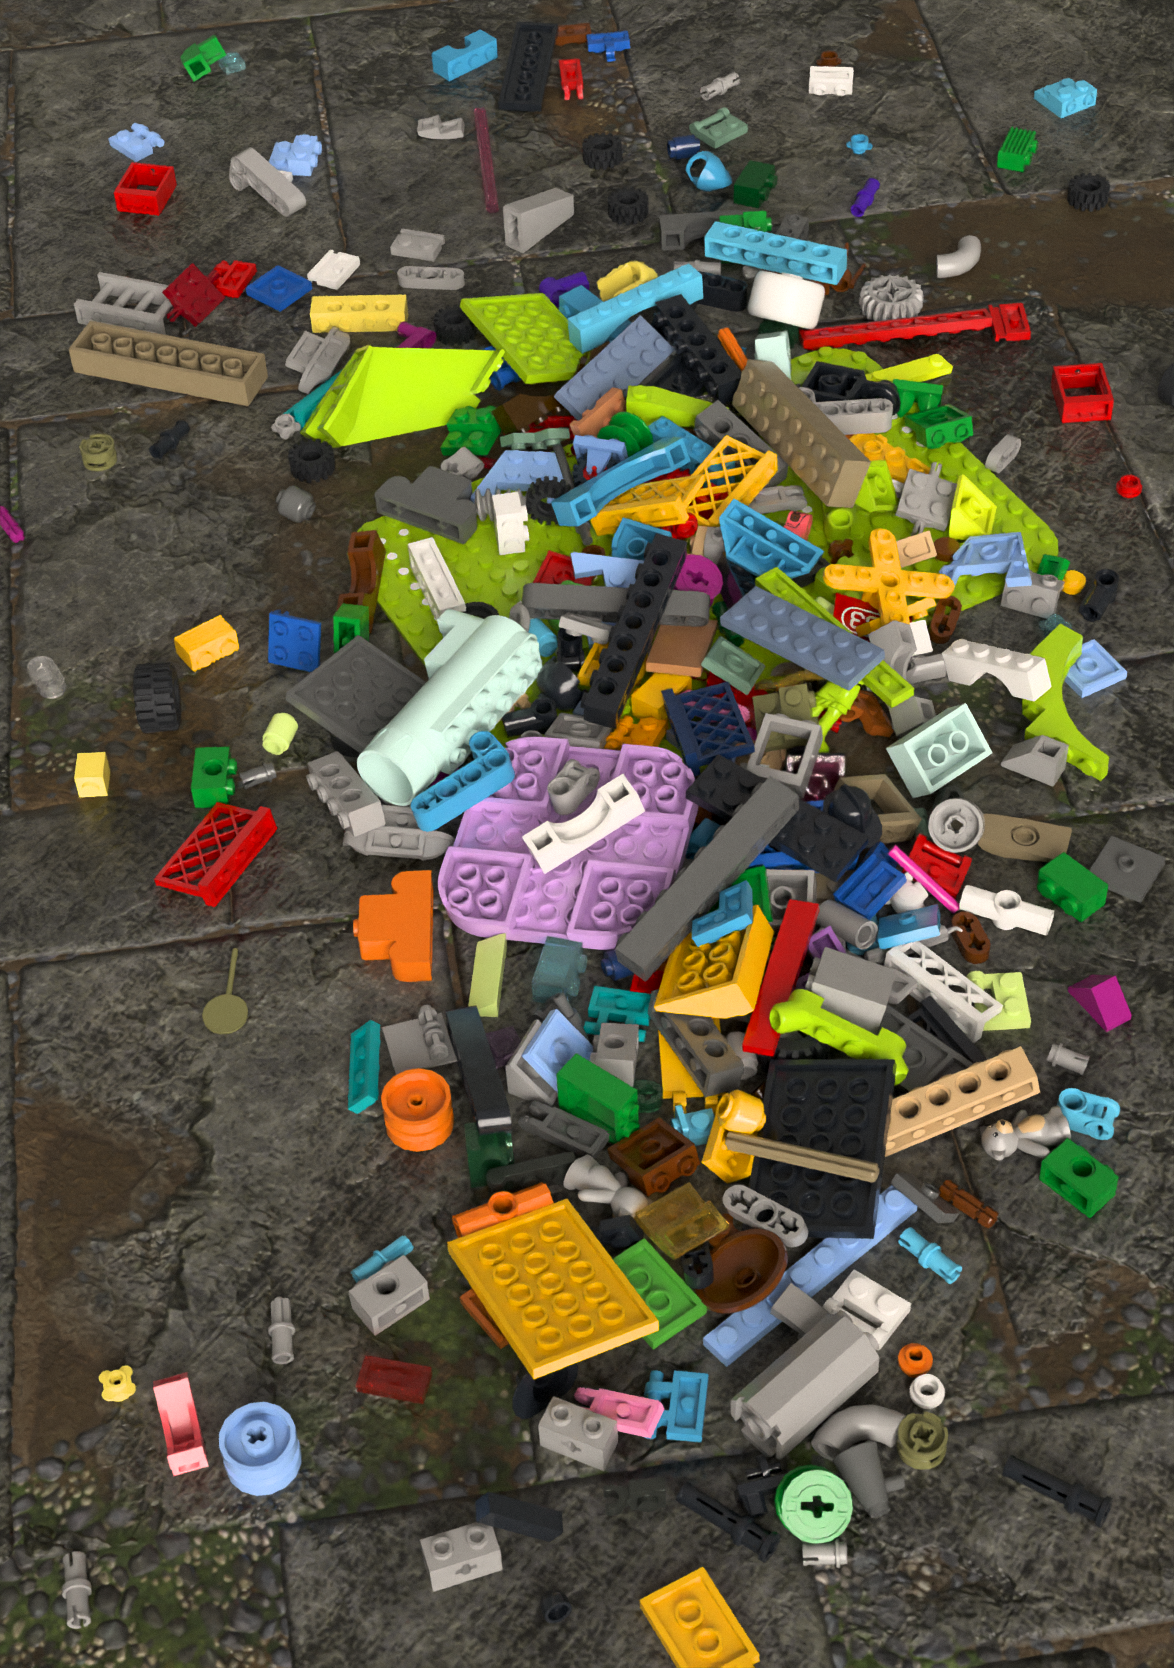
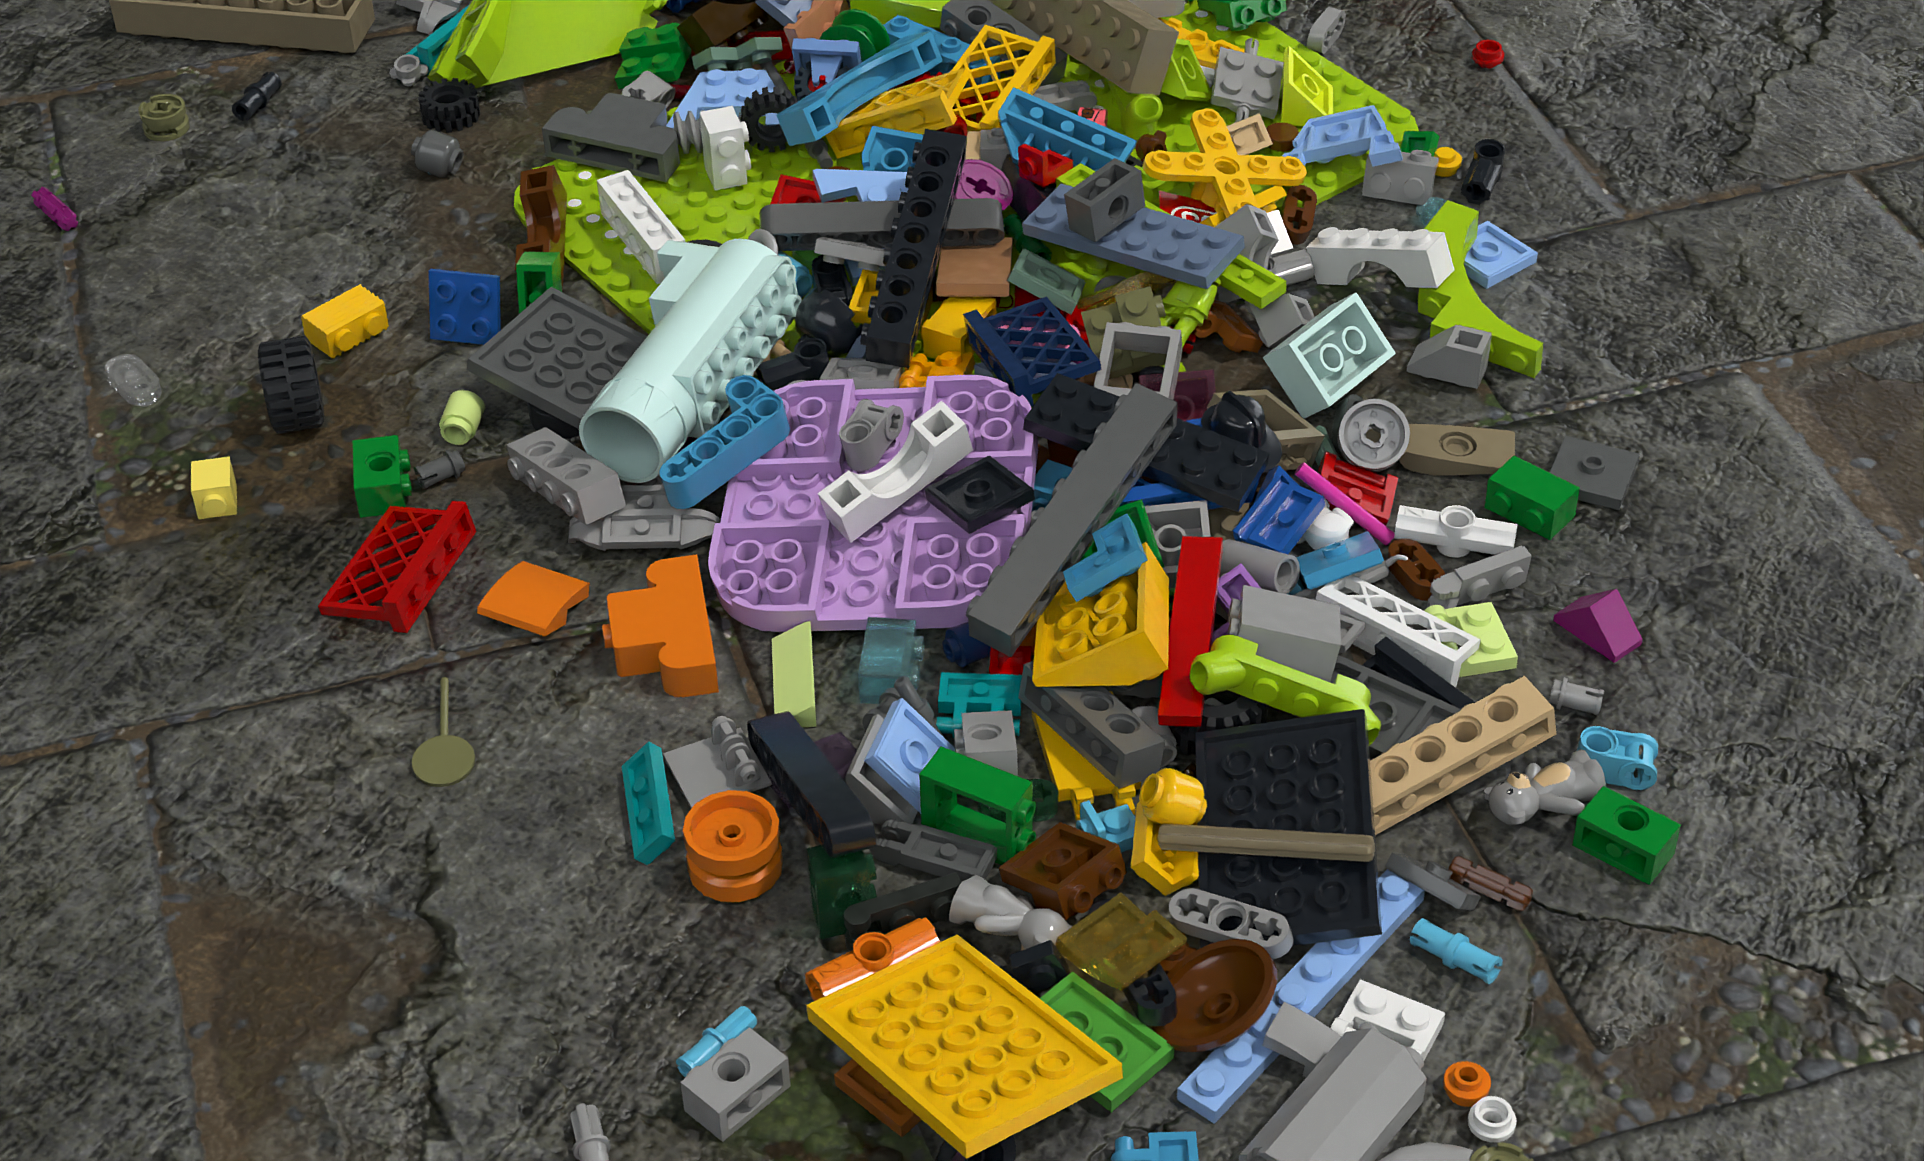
camera: 10 degrees left, 5 degrees down
(309, 890) = (533, 598): none -> orange slope
(643, 848) = (979, 494): none -> black plate
(747, 567) = (1041, 166): none -> red bracket
(780, 610) = (1104, 199): none -> dark grey brick
(1016, 952) = (1481, 578): none -> light grey hinge

